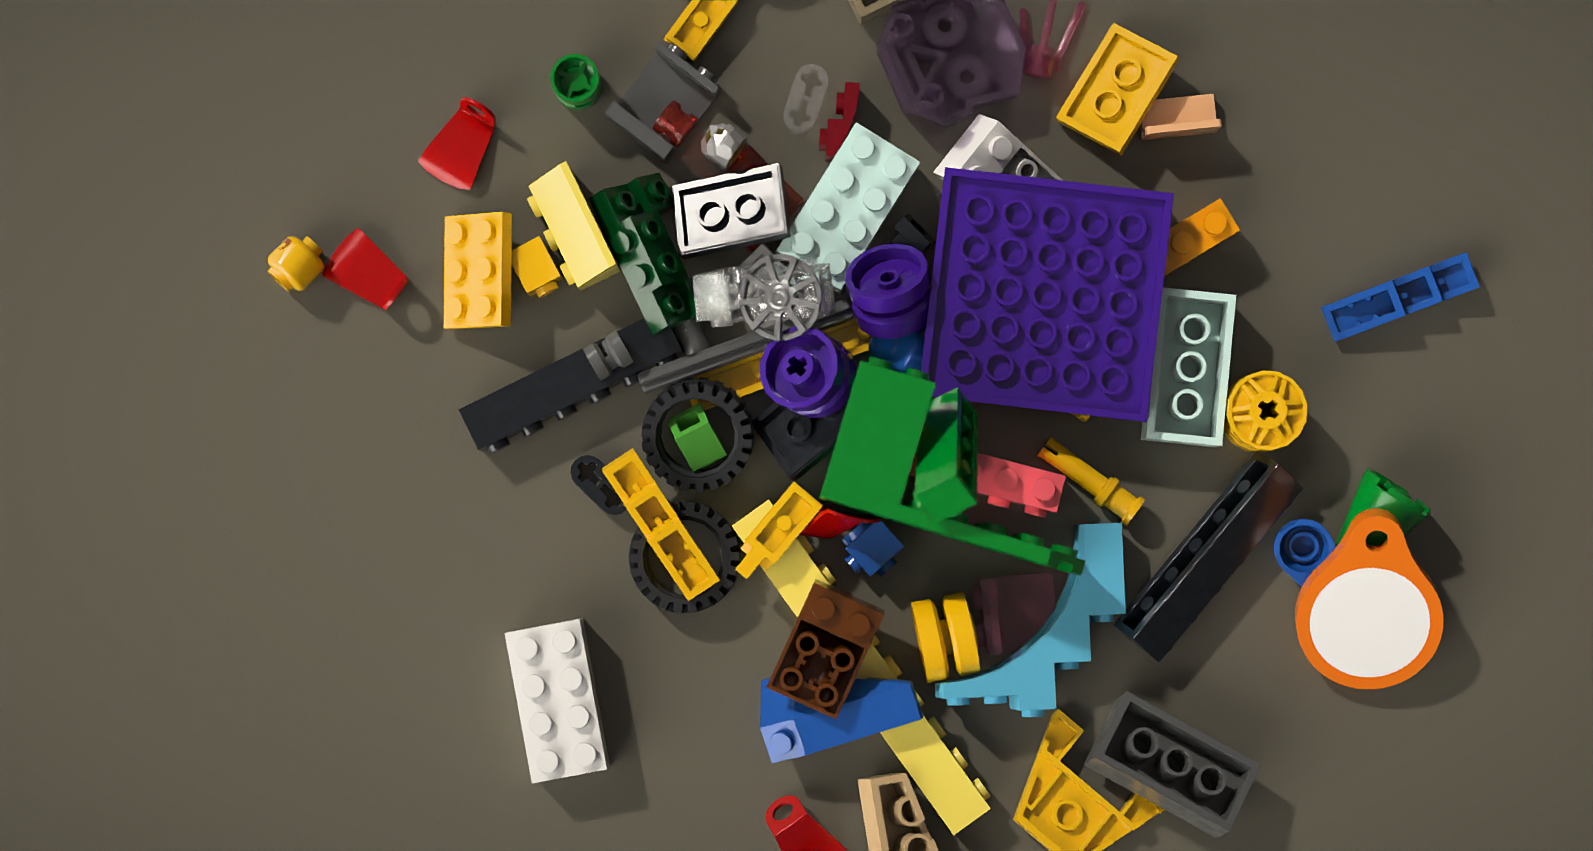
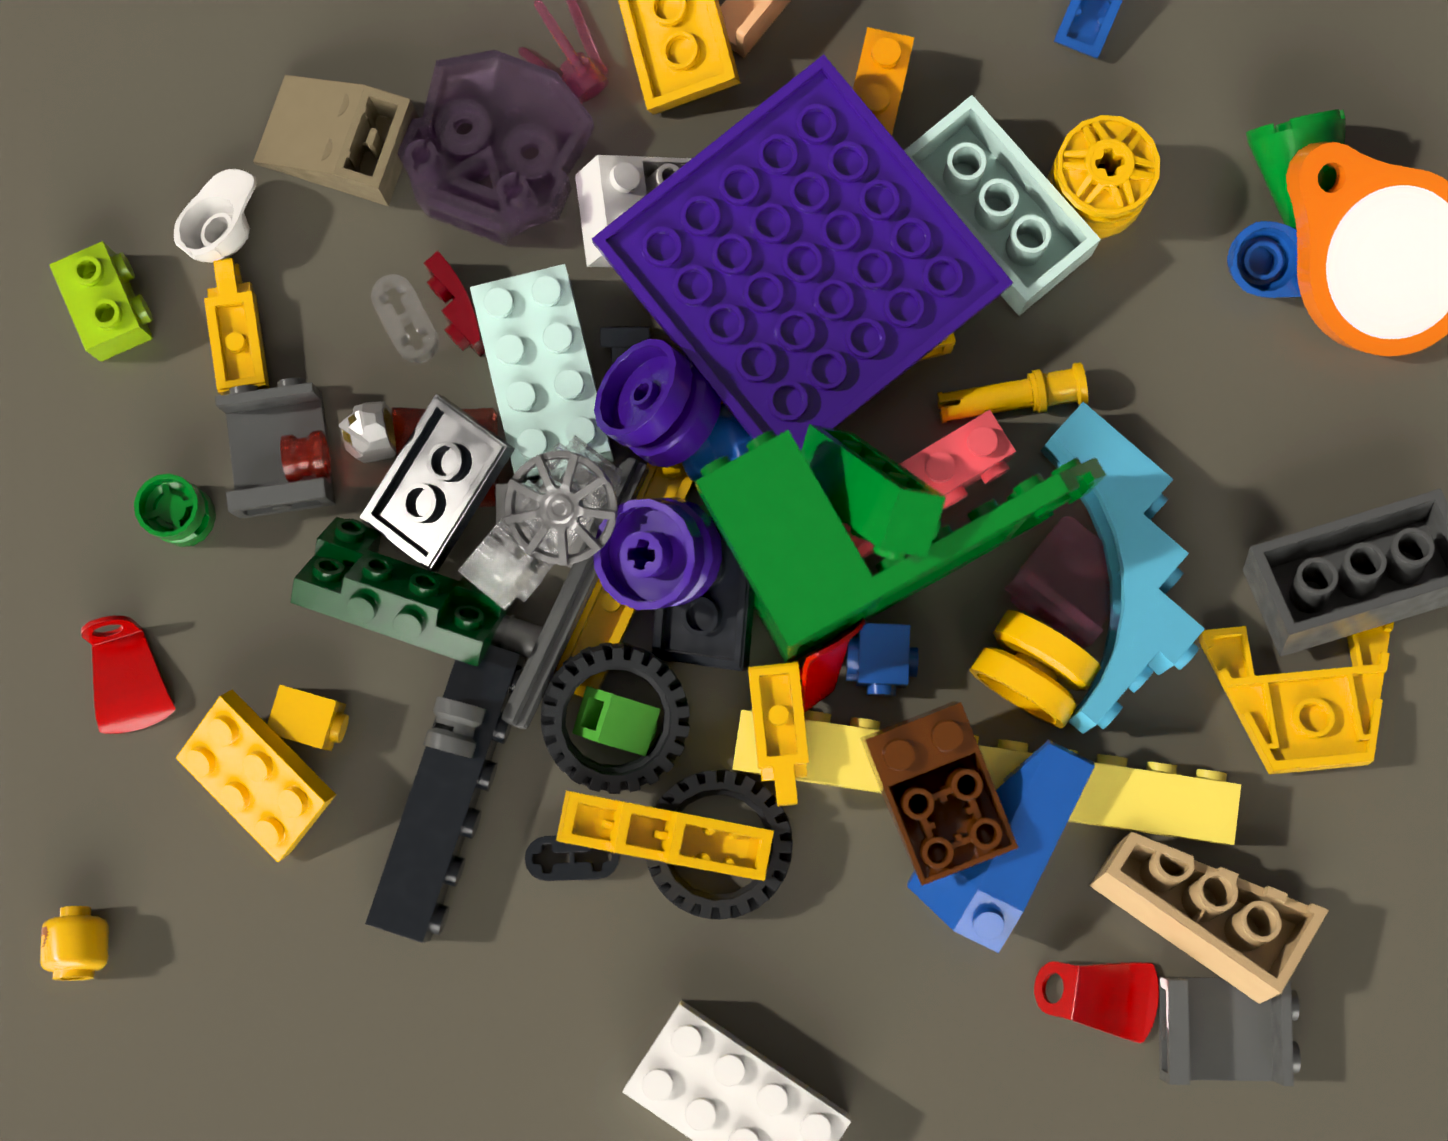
camera: 40 degrees left, 5 degrees down
(365, 270) = (150, 884): red piece -> none
(572, 228) = (304, 645): light yellow slope -> none
(1208, 556) = (1190, 354): black brick -> none

